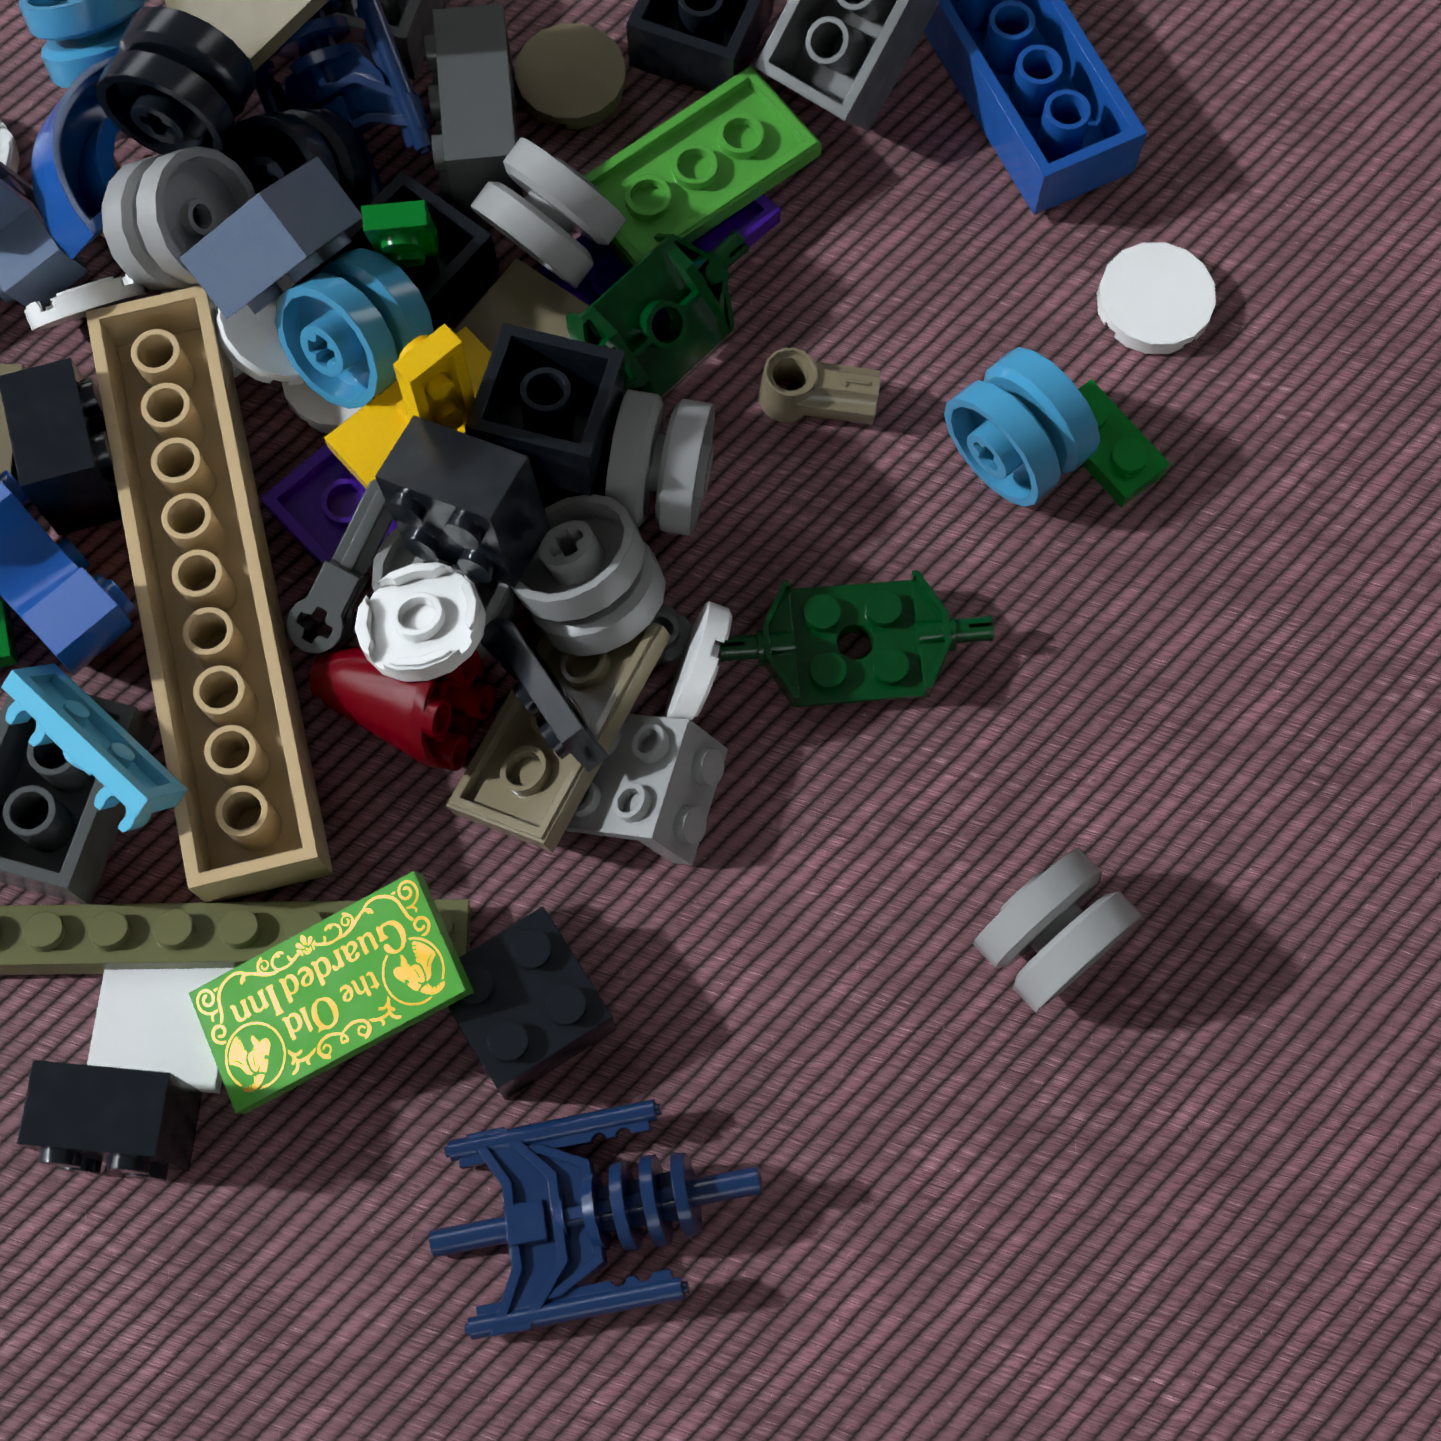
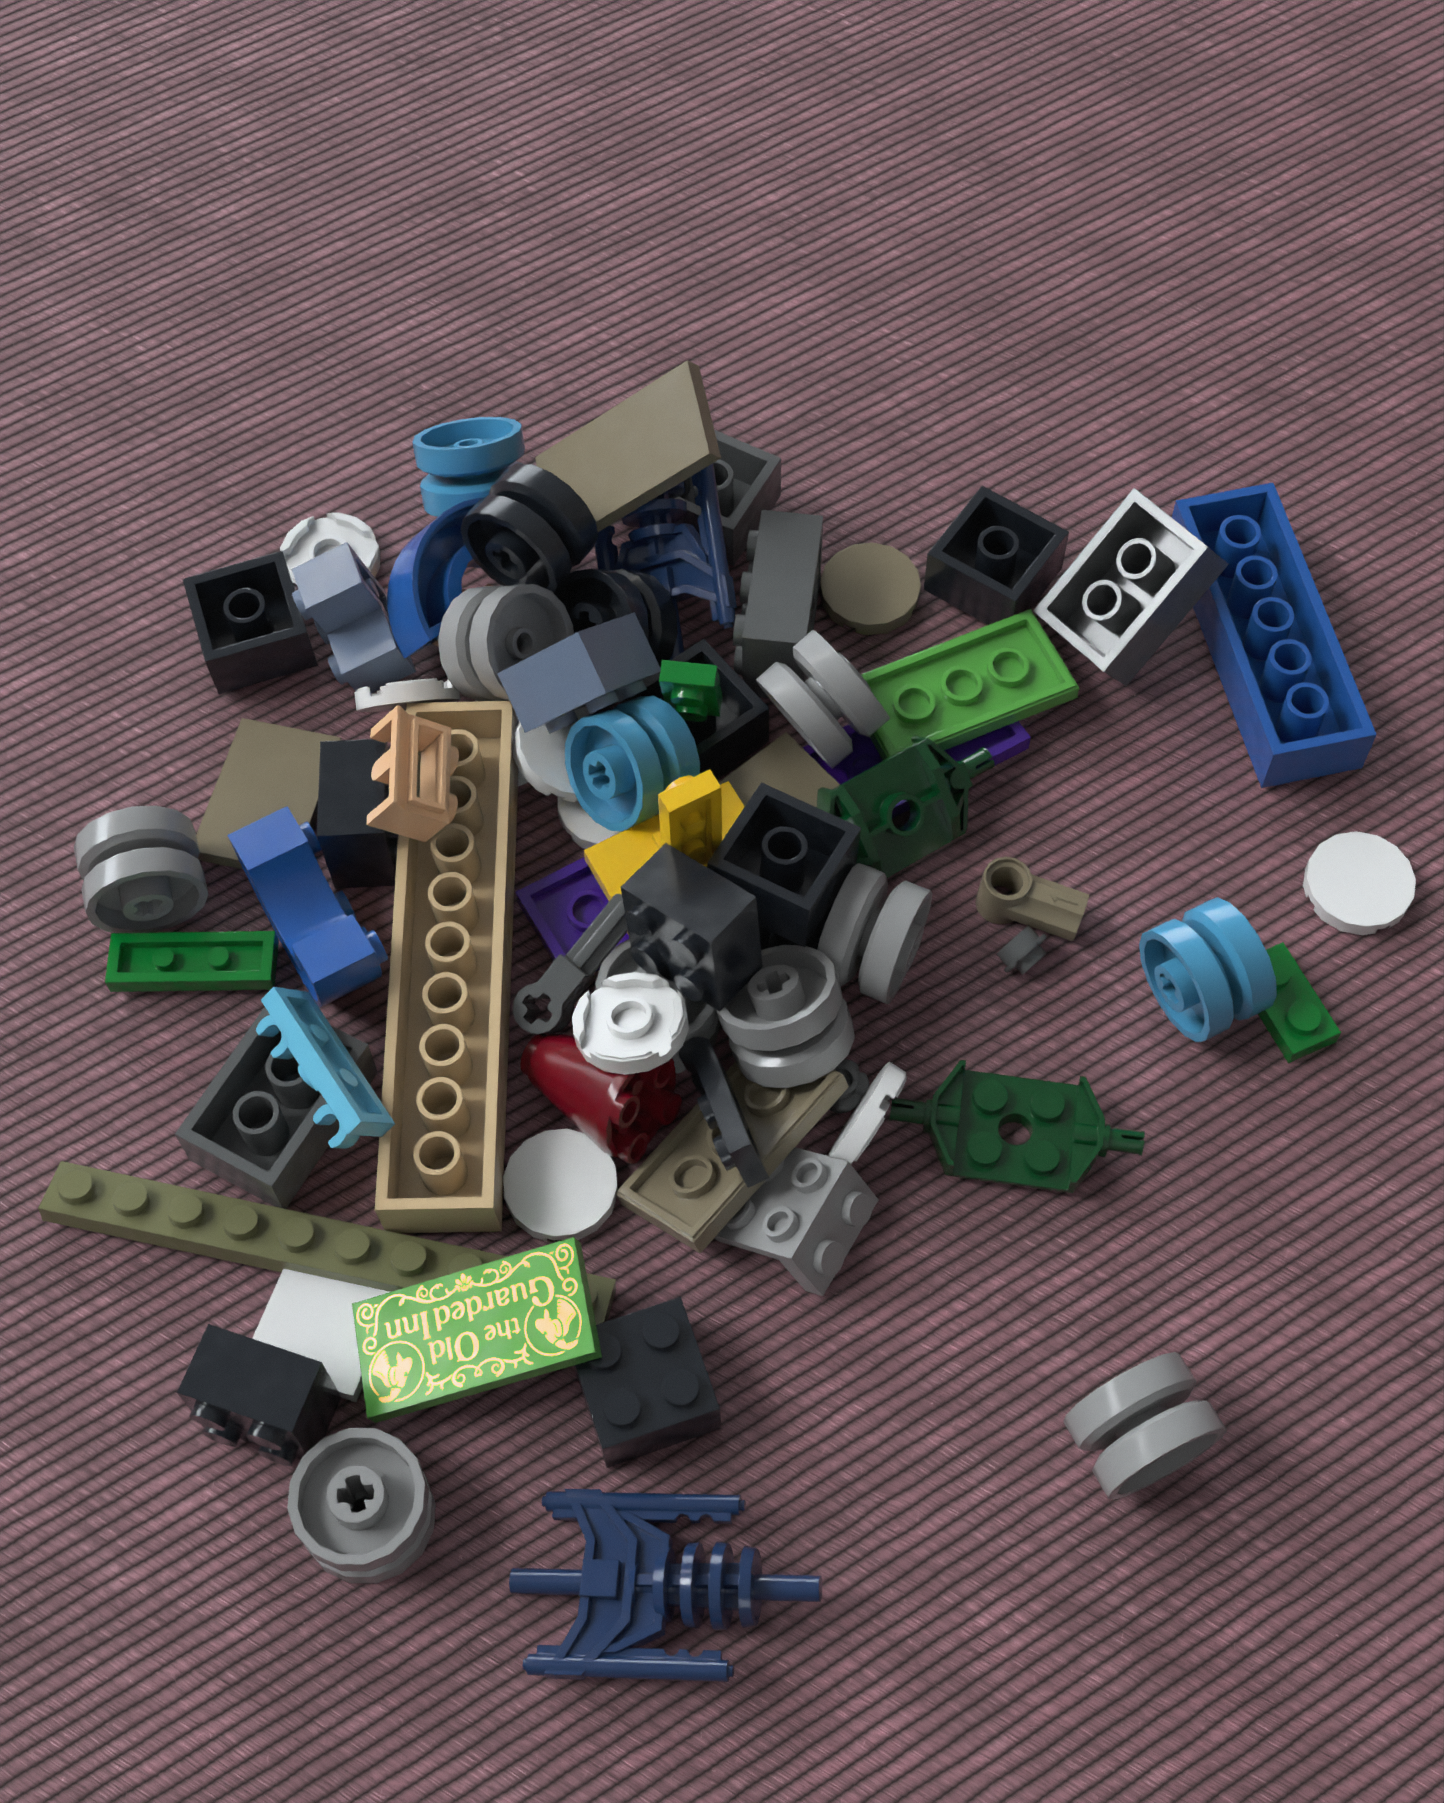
camera: 15 degrees right, 10 degrees down
(92, 390) = (403, 810): none -> light nougat window
(213, 1199) = (341, 1475): none -> light grey wheel
(384, 810) = (560, 1185): none -> white tile
(822, 446) = (1022, 951): none -> dark grey plate

